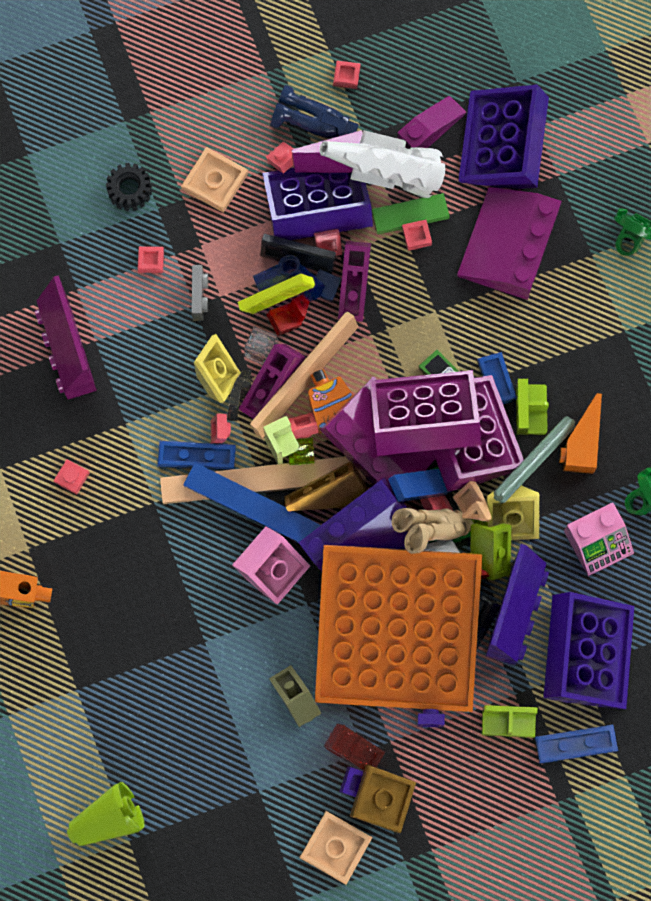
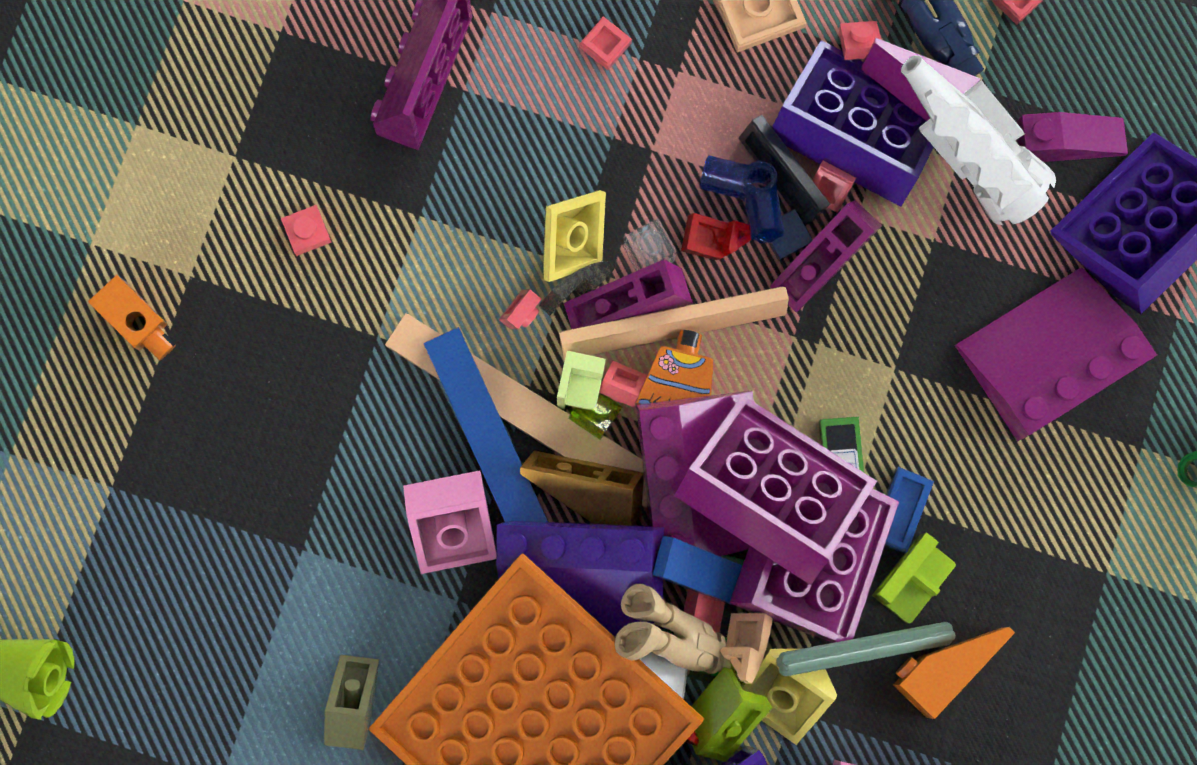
camera: 30 degrees right, 5 degrees up
(185, 454) = (478, 325): blue tile -> none
(199, 283) = (637, 115): light grey plate -> none
(276, 294) = (717, 200): neon yellow tile -> none
(393, 216) = (959, 226): bright green tile -> none
(416, 235) = (946, 258): coral plate -> none

